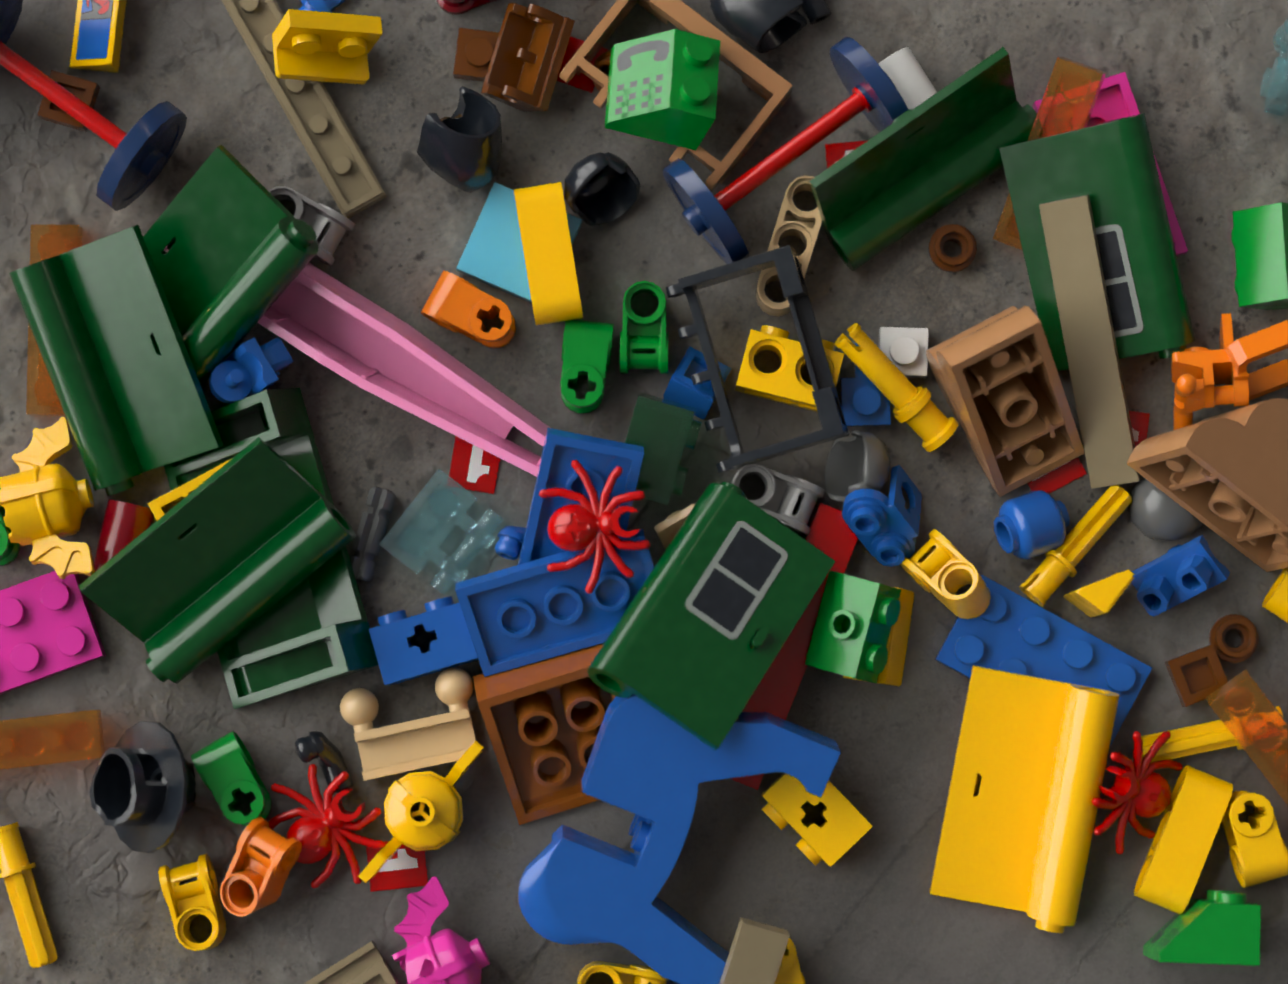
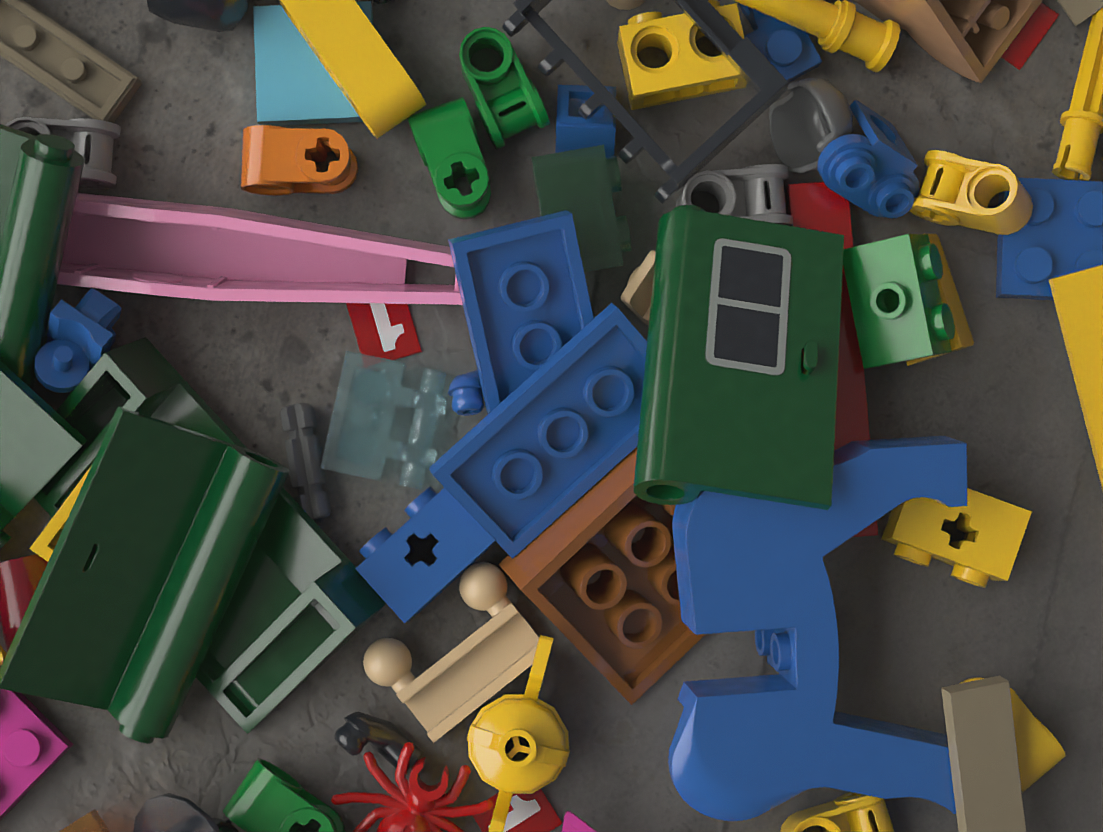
camera: 30 degrees left, 0 degrees up
(592, 525) = (554, 324): red animal -> none
(1031, 524) = (1032, 95): blue head -> none

